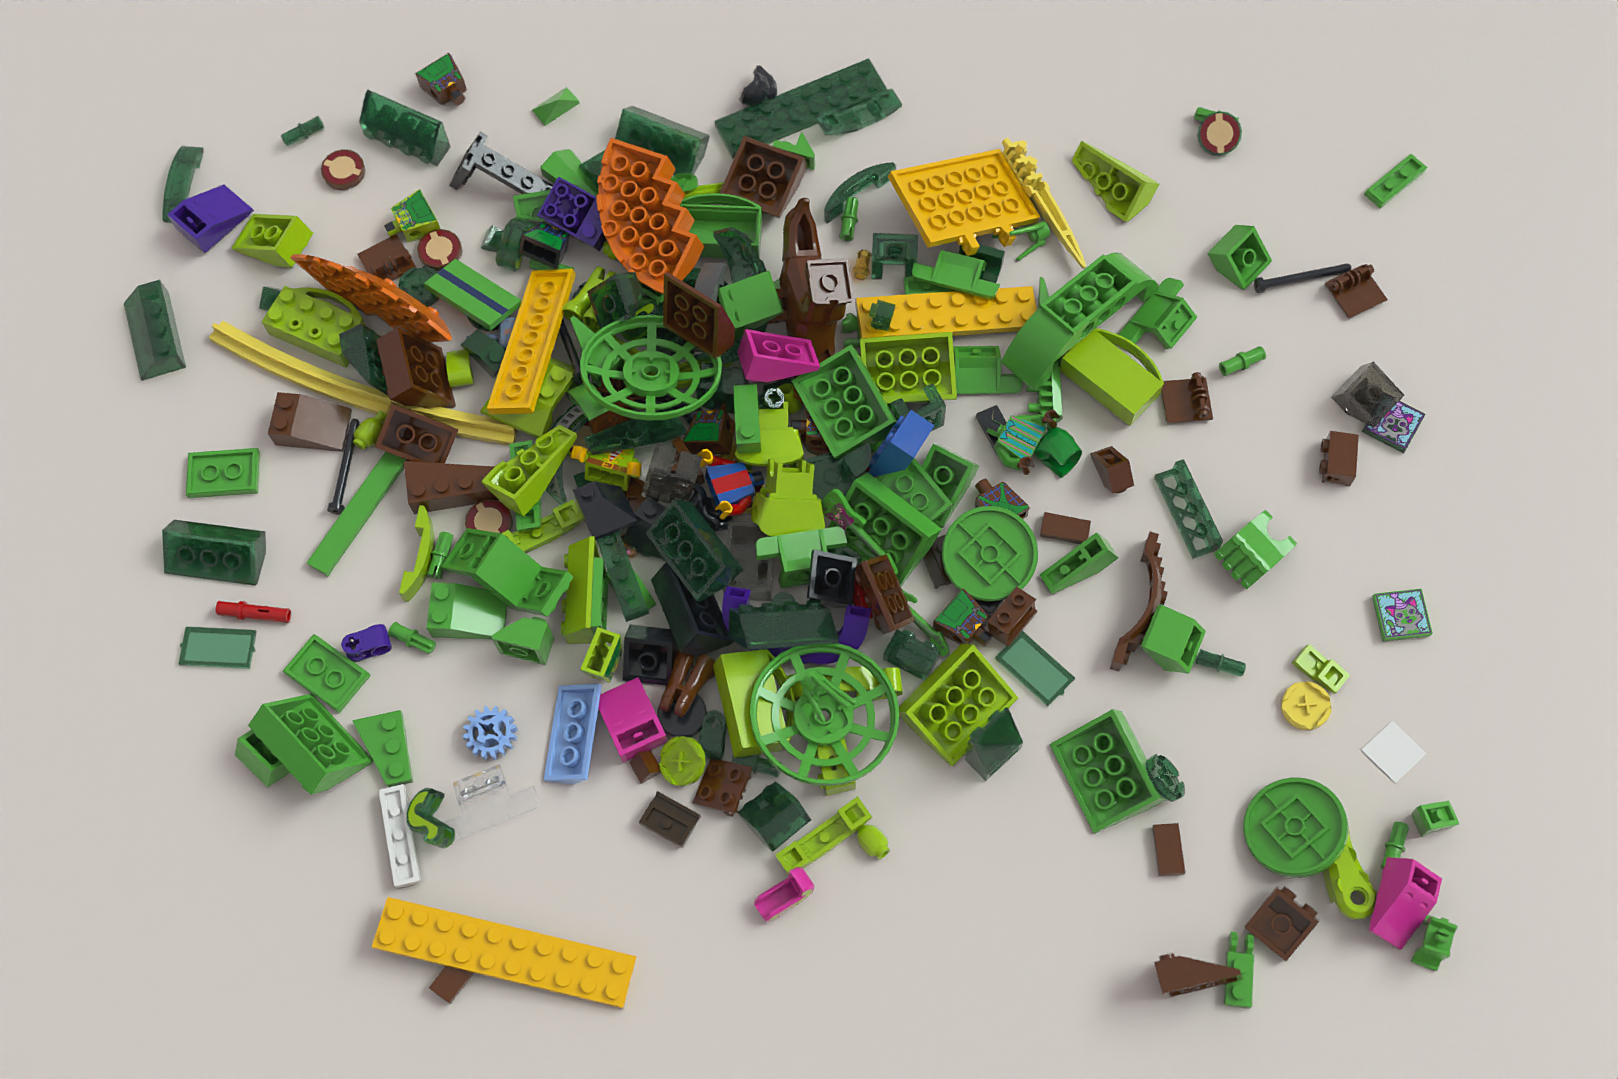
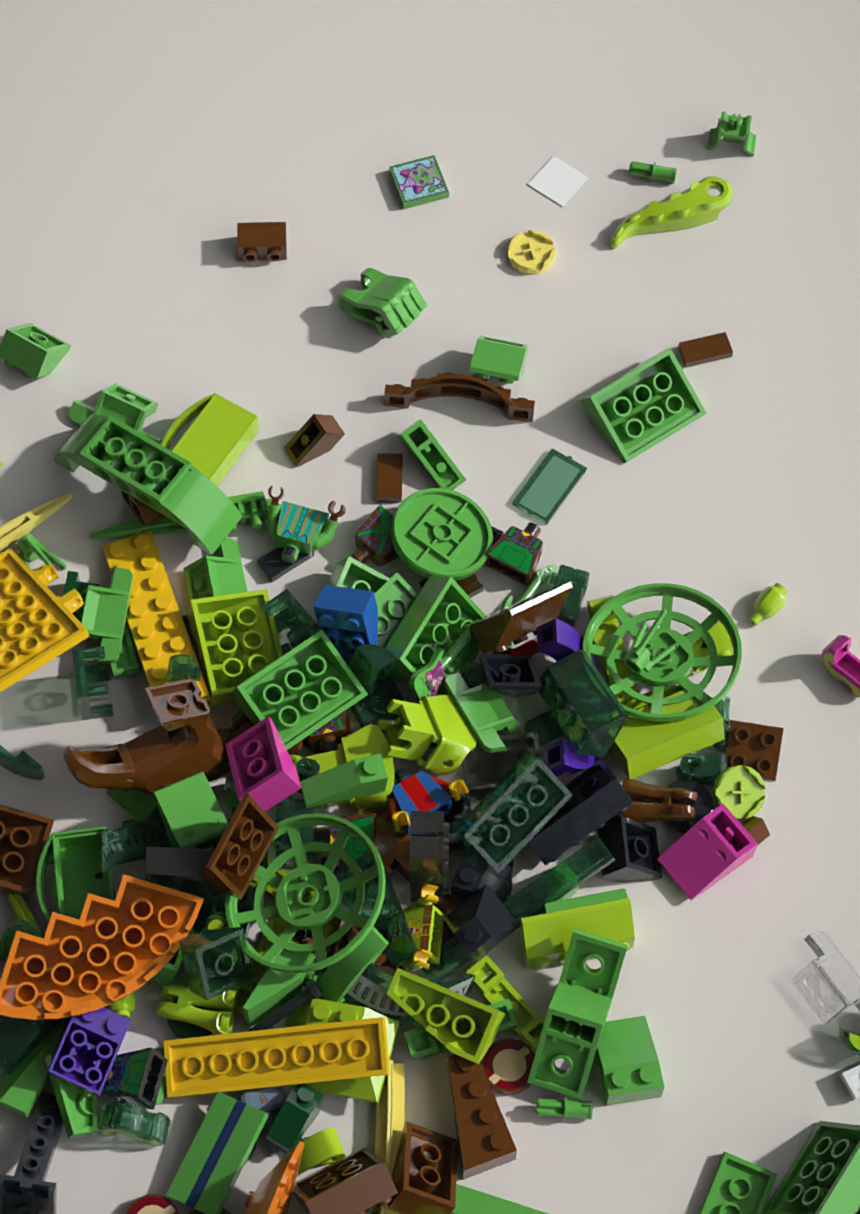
camera: 105 degrees left, 5 degrees down
(368, 643) = (688, 1157): dark purple piece -> none
(387, 744) = (800, 1108): bright green wing -> none
(412, 638) = (671, 1114): bright green axle -> none
(414, 580) = (572, 1123): lime slope -> none
(485, 740) = (770, 1001): light blue gear -> none
(492, 239) = (127, 1158): clear green slope -> none
(525, 640) = (649, 975): bright green slope -> none
(572, 733) = (736, 910): light blue slope -> none
(602, 659) = (655, 885): lime torso -> none
(669, 819) = (802, 794): dark brown plate -> none
(774, 815) = (770, 694): clear green slope -> none
(825, 837) = (777, 645): lime slope -> none
(849, 219) = (40, 747): bright green axle -> none
(861, 269) = (100, 724): clear yellow pin -> none
(956, 702) = (606, 546): lime slope -> none
(993, 744) = (648, 504): clear green slope -> none
(1012, 616) = (504, 506): reddish brown hinge -> none
(1058, 451) = (306, 487): green piece -> none
(1164, 777) = (643, 352): clear green tile -> none
(1186, 975) = (829, 312): reddish brown slope -> none
(1187, 399) = (219, 378): reddish brown hinge -> none
(1197, 508) = (344, 359): clear green fence -> none
(1220, 662) = (506, 323): clear green axle -> none
(1240, 992) = (803, 282): bright green hinge -> none
(1242, 360) = (162, 336): bright green pin -> none
(1261, 284) = (65, 329): black bar -> none
(1282, 922) = (750, 249): reddish brown plate -> none
(1295, 827) = (660, 244): bright green plate -> none
(1319, 669) = (492, 242): lime slope -> none
(1356, 290) = (57, 243): reddish brown hinge -> none
(1368, 394) = (186, 221): clear smoke slope -> none
(1397, 426) = (209, 202): tile -> none
(1403, 900) = (700, 153): dark pink slope -> none
(1434, 817) = (621, 141): bright green slope -> none

